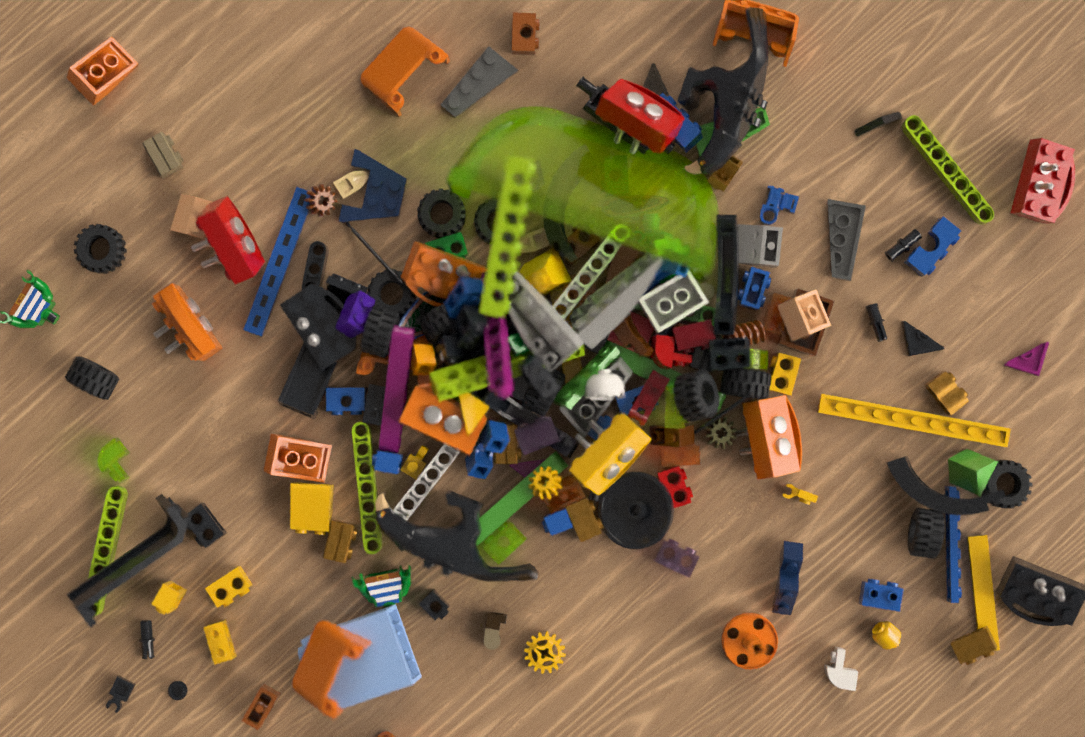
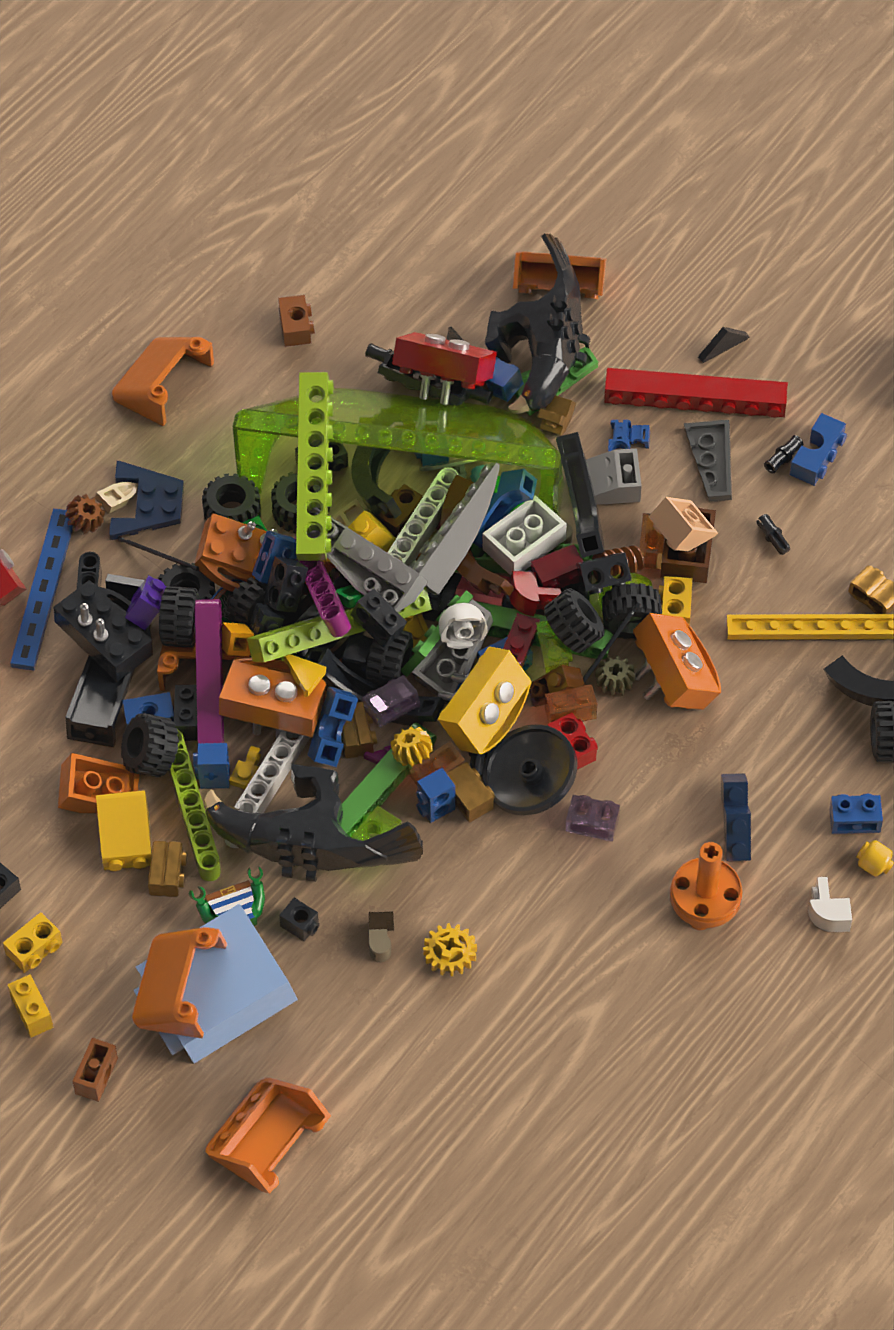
camera: 10 degrees left, 30 degrees down
(340, 438) = (149, 745): none -> black tyre
(481, 78) = (251, 375): dark grey wing -> none
(754, 288) = (619, 516): blue brick -> none
(805, 497) = (732, 724): yellow plate -> none
(845, 171) = (695, 392): none -> red brick
(918, 342) = (829, 549): black tile -> none
(956, 174) = (814, 374): lime beam -> none

